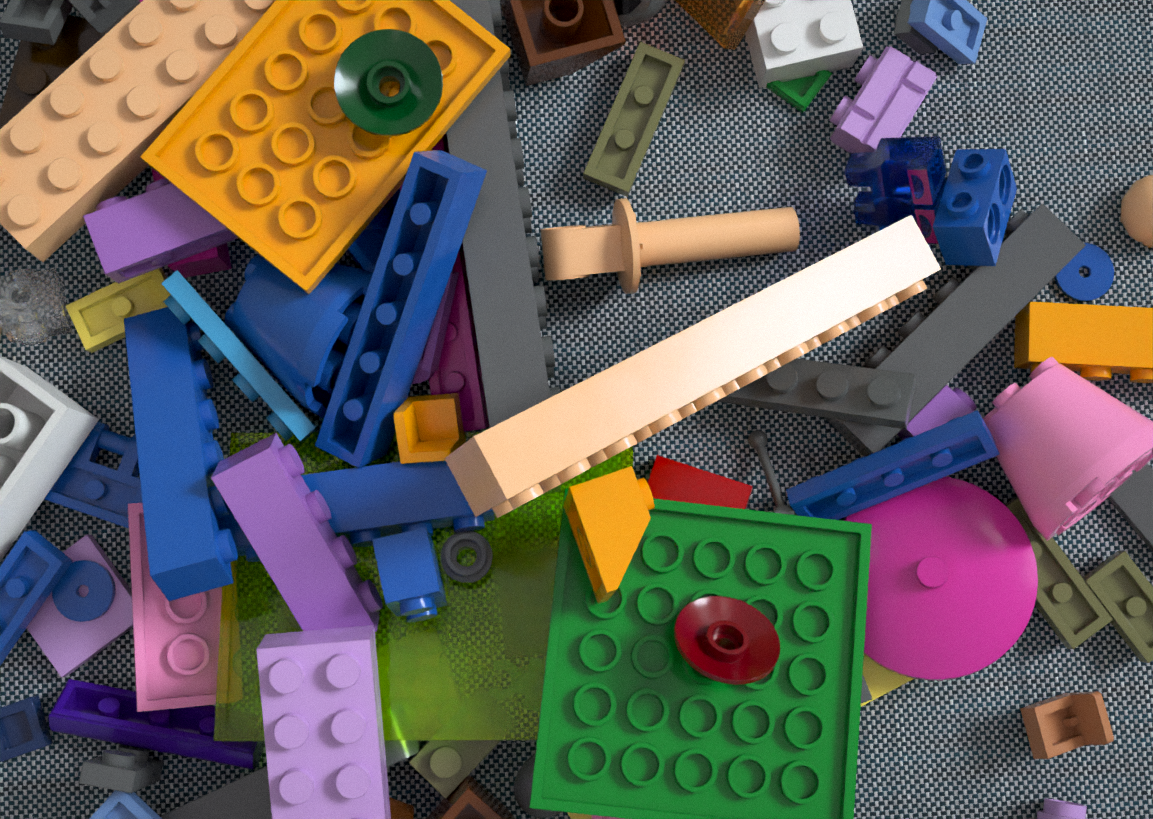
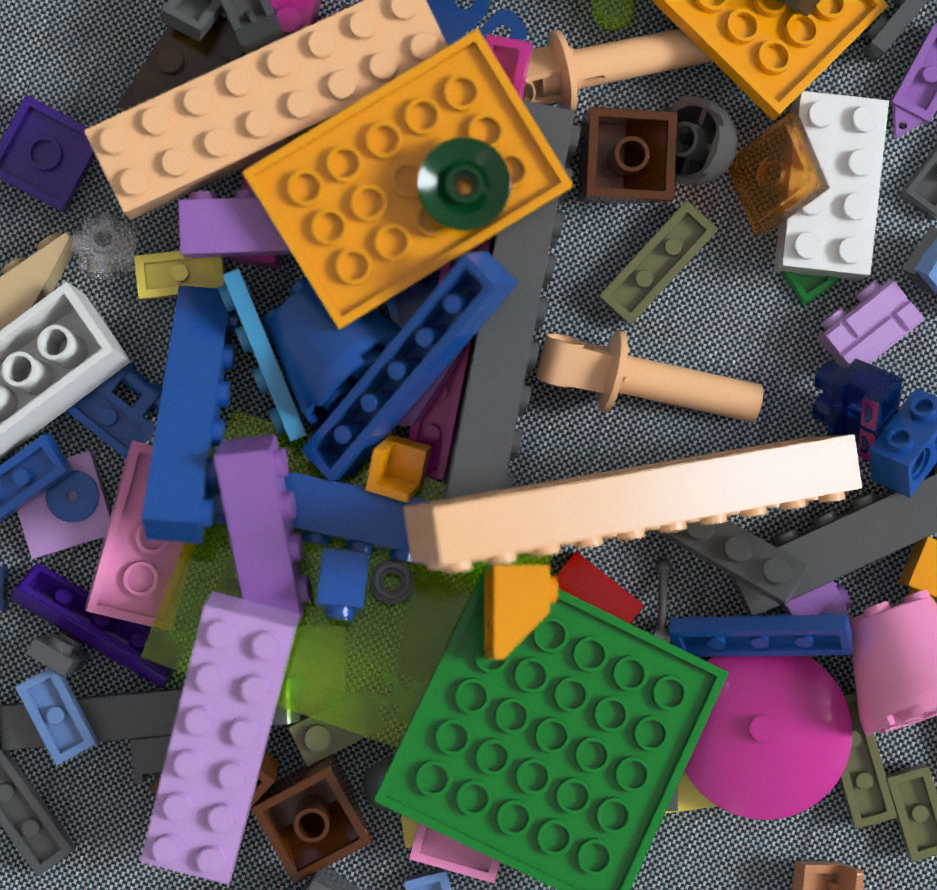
camera: 25 degrees right, 5 degrees up
(727, 640) = (576, 725): dark red dish -> none

